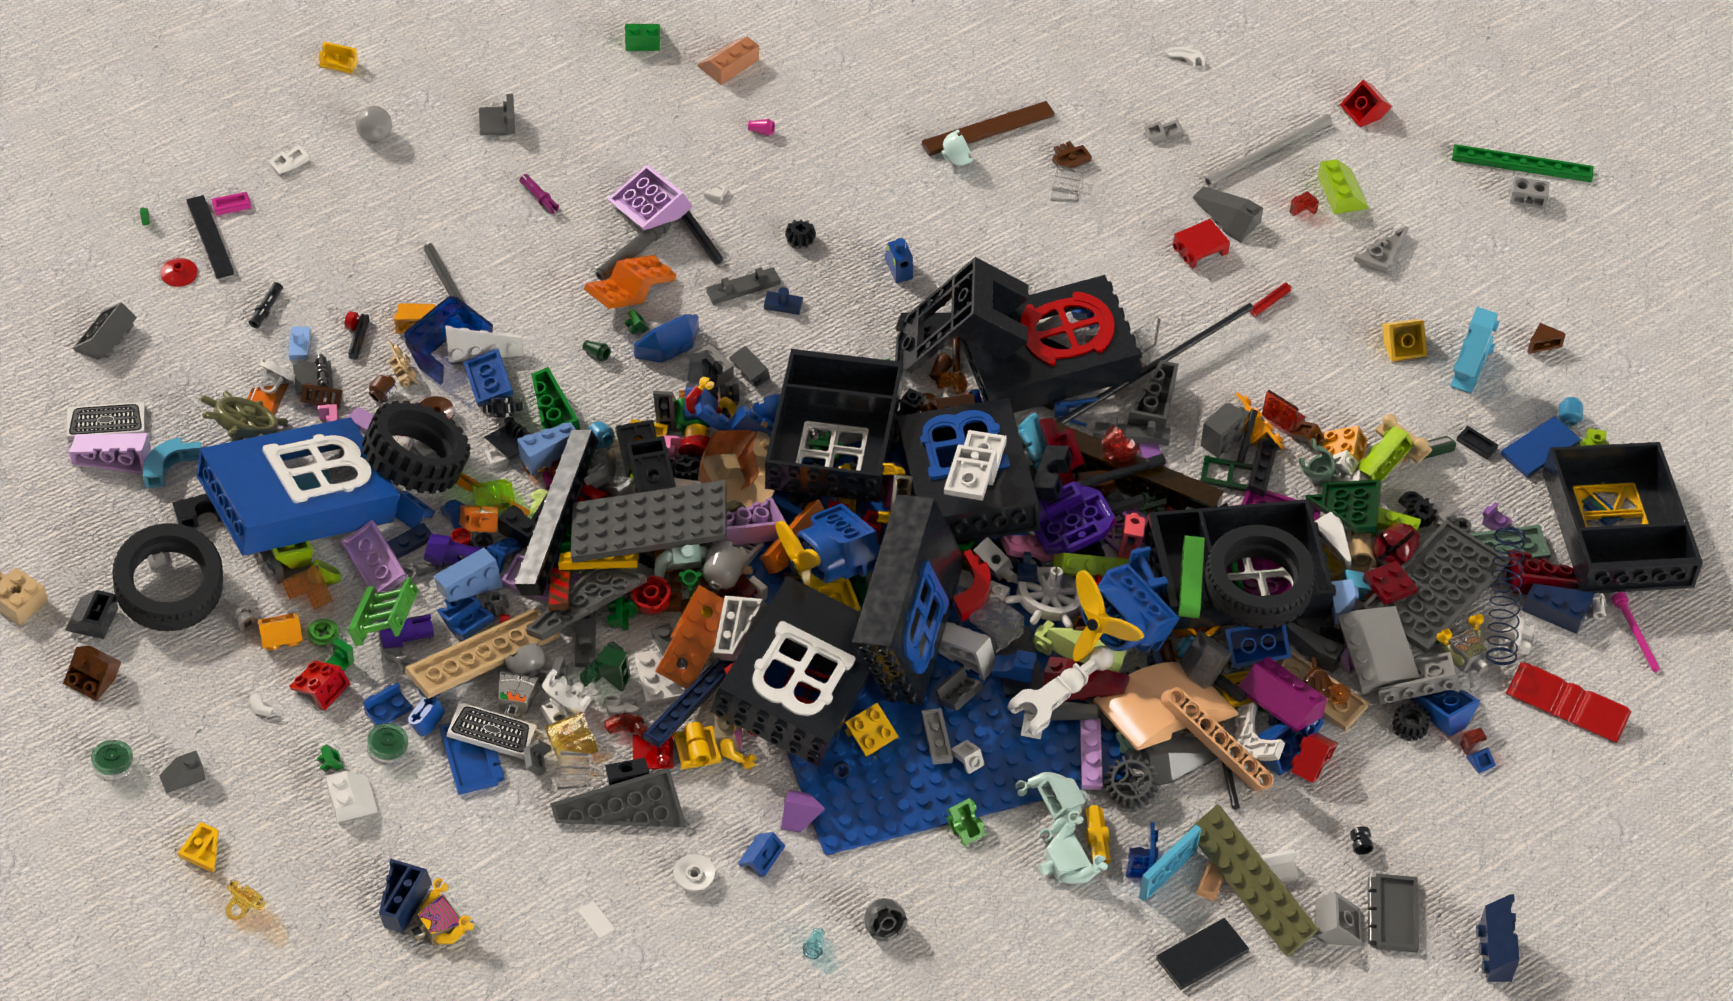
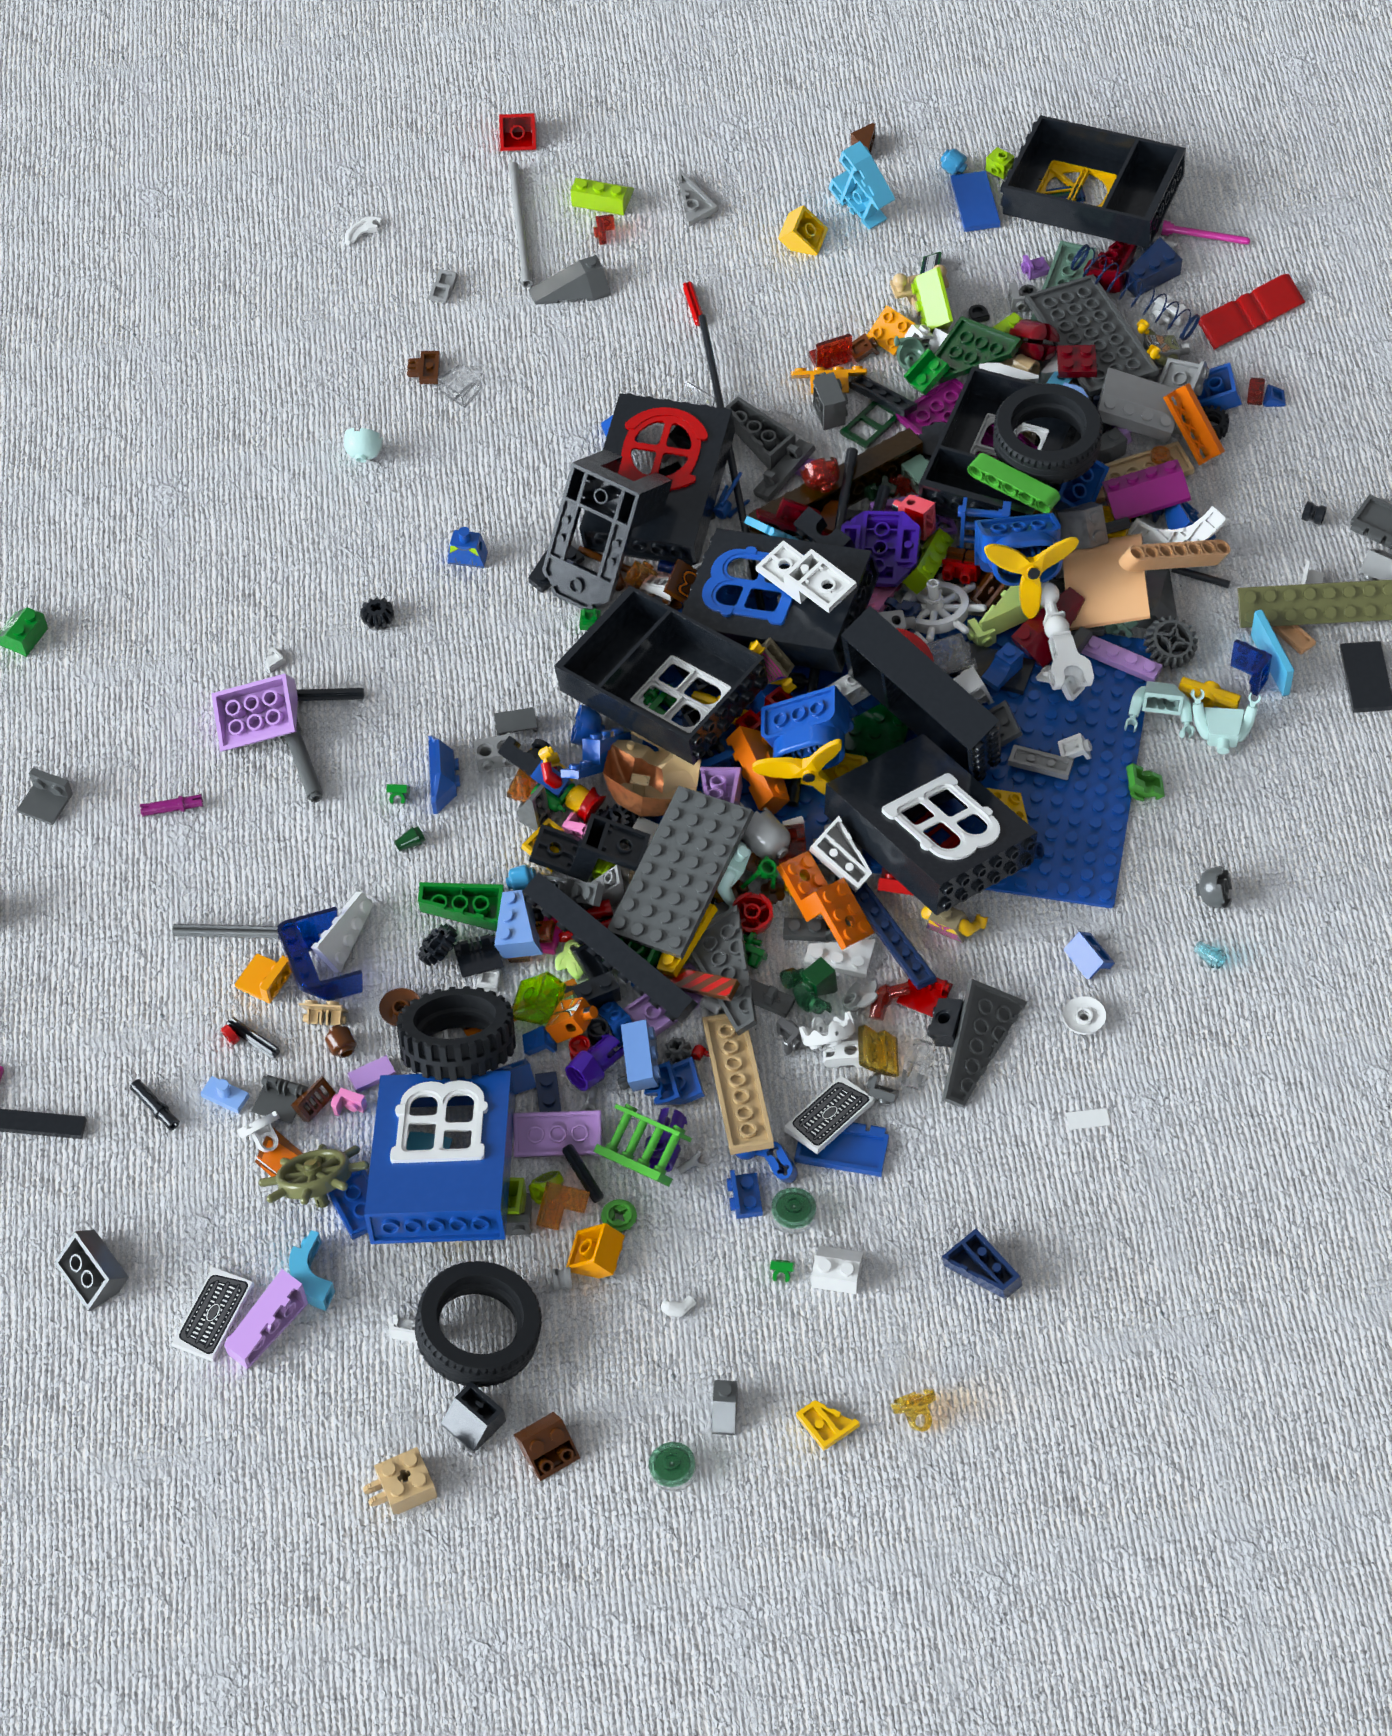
camera: 55 degrees left, 5 degrees up
(179, 272) = (48, 1178): red dish -> none
(188, 510) = (393, 1281): black arch -> none
(321, 681) = (681, 1241): red bracket -> none
(342, 654) = (666, 1218): green bracket -> none
(347, 591) = (582, 1173): none -> black axle
(438, 918) = (1027, 1246): torso -> none
(488, 377) = (387, 944): blue plate -> none
(516, 693) = (795, 1077): light grey torso -> none
(526, 661) = (767, 1050): light grey cylinder -> none
(630, 281) = (349, 772): orange bracket -> none
(696, 746) = (943, 954): yellow plate -> none
(731, 60) = (106, 573): nougat slope -> none
(743, 285) = (407, 687): dark grey hinge -> none
(762, 126) = (216, 585): dark pink cone -> none
(783, 302) = (451, 664): dark blue tile -> none
(799, 811) = (1061, 902): medium lavender slope -> none
(993, 126) = (344, 412): reddish brown tile -> none
(1200, 242) = (598, 320): red panel -> none
(1247, 435) = (851, 398): black bar -> none
(1305, 483) = (926, 372): none -> green bracket
(1314, 754) = (1215, 494): red brick -> none
(1318, 678) = (1135, 461): reddish brown piece -> none
(1390, 701) = (1196, 422): none -> orange fence
(1421, 509) = (998, 309): black gear -> none
(1477, 442) = (943, 240): black tile -> none
(1522, 163) = (657, 62): green tile -> none
(1529, 192) = (697, 72): light grey brick -> none

